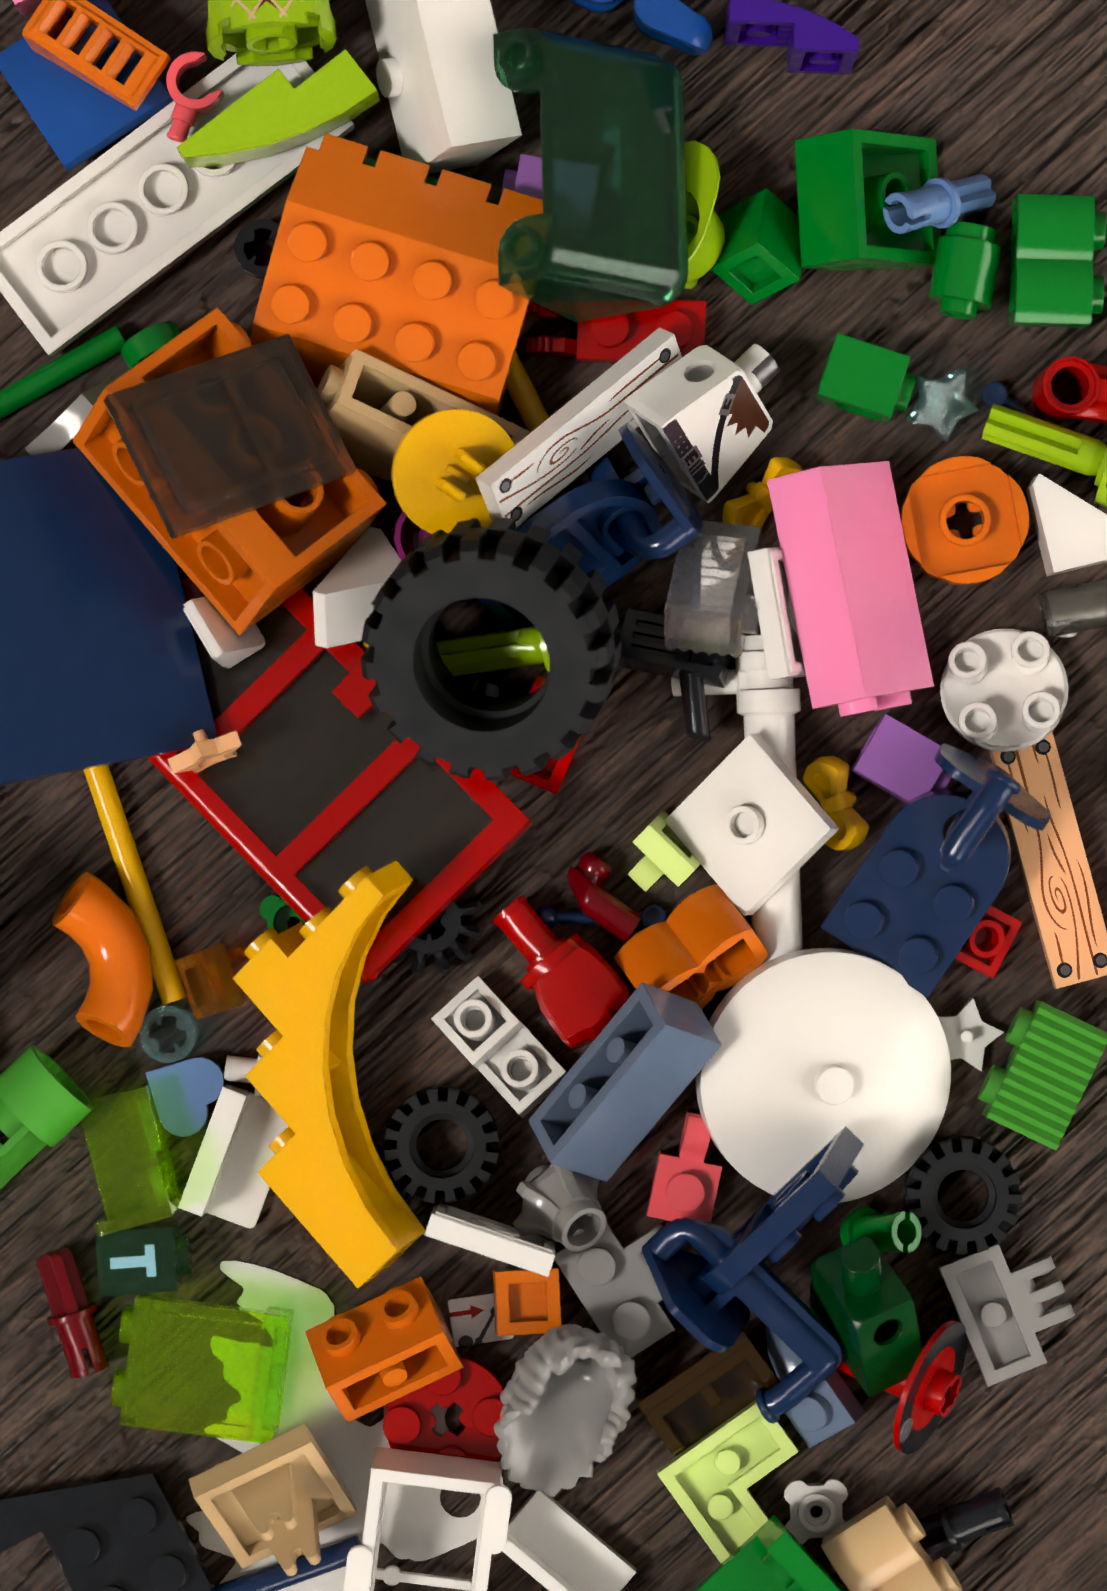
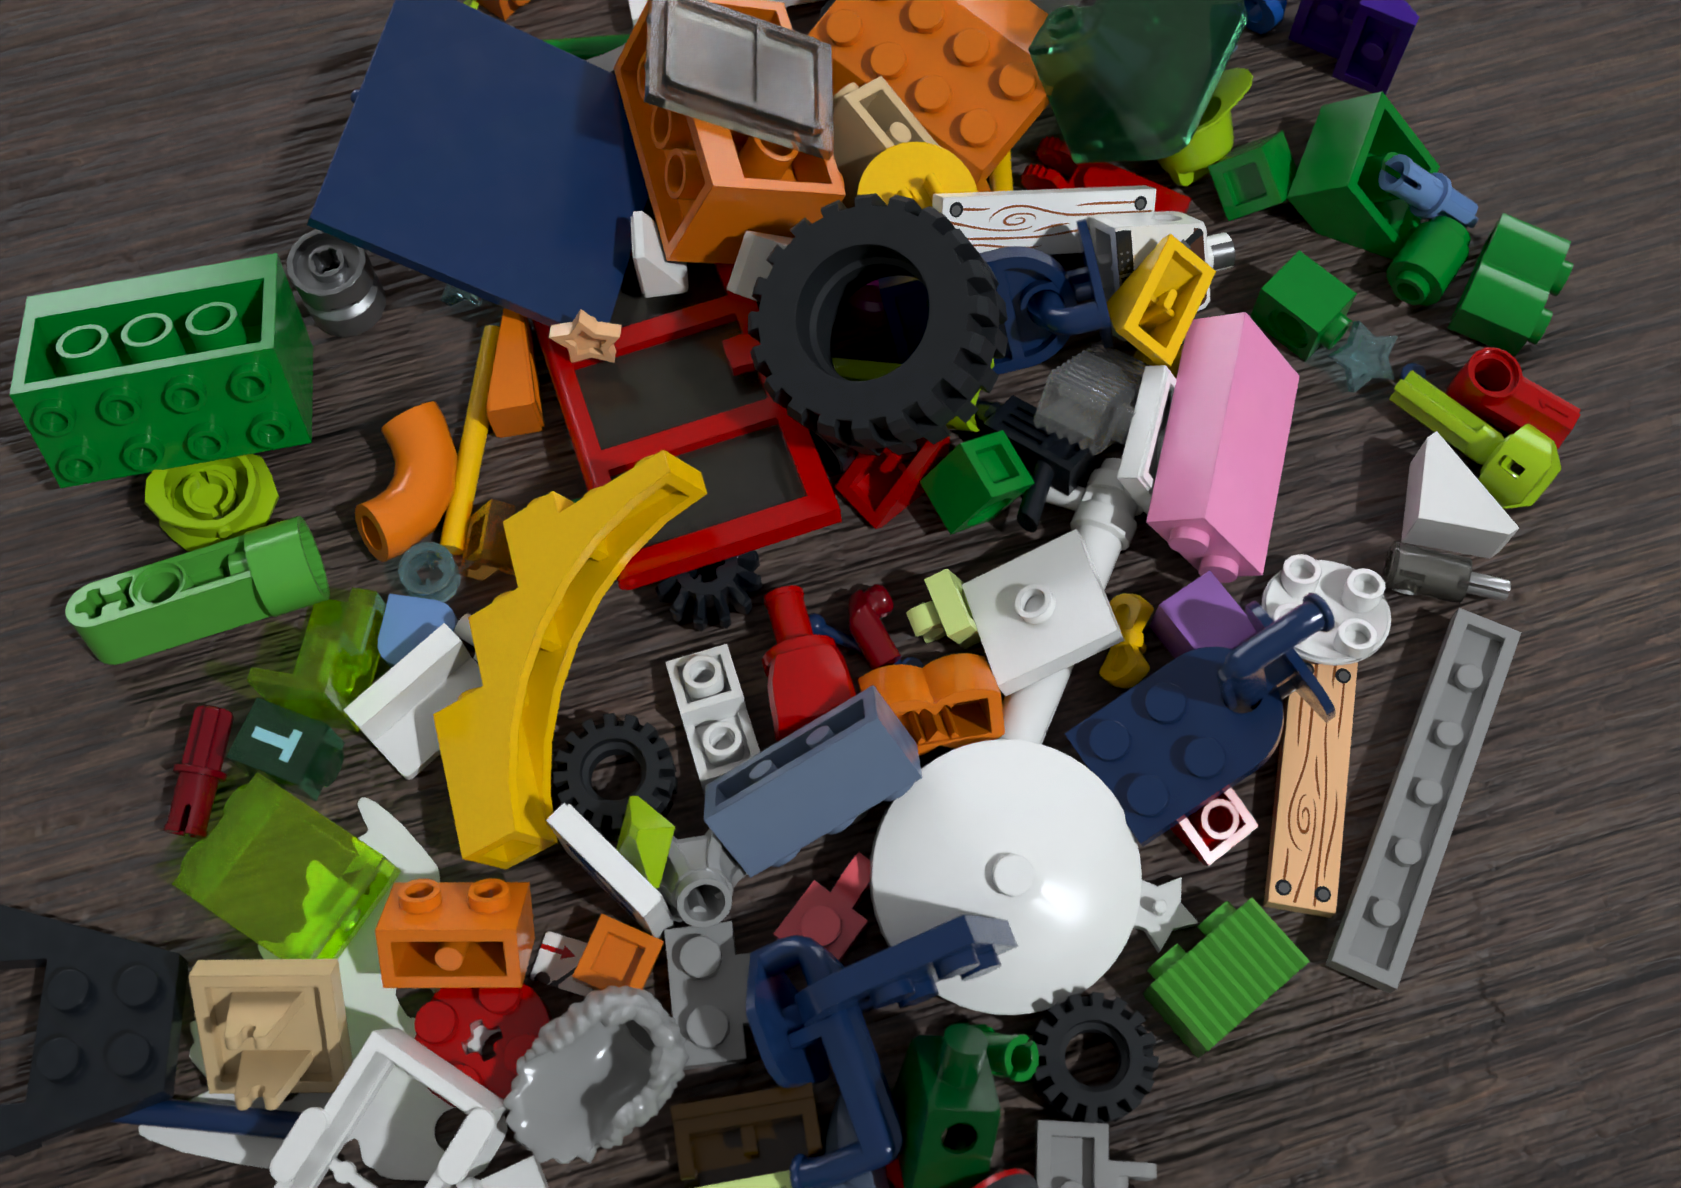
camera: 25 degrees right, 20 degrees down
(149, 814) = (514, 388): none -> orange slope
(505, 1200) = (645, 840): none -> lime slope
(636, 720) = (976, 481): none -> green brick
(731, 478) = (1161, 300): none -> yellow slope
(984, 490) = (1340, 490): orange plate -> none

